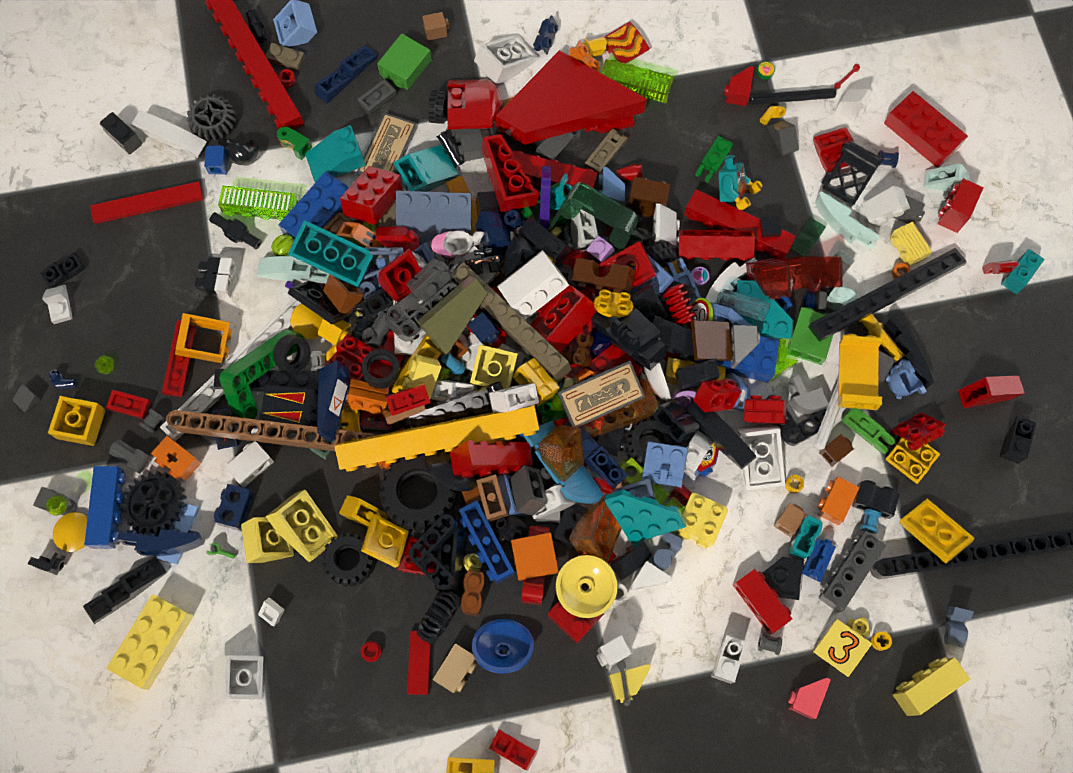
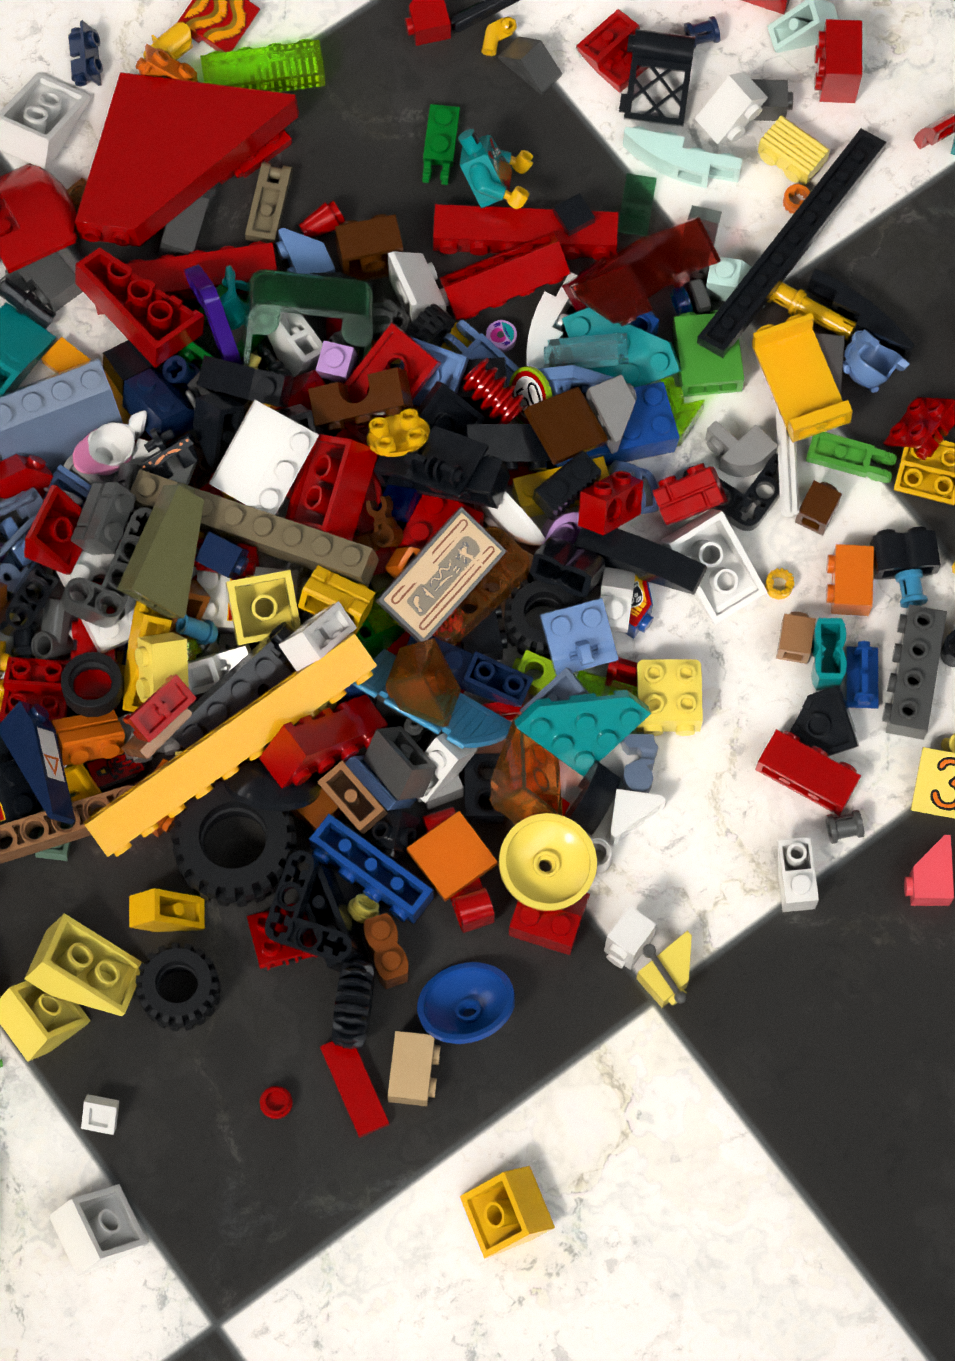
camera: 25 degrees left, 0 degrees up
(385, 541) = (220, 934): yellow tile -> none
(513, 750) = (549, 1142): red slope -> none

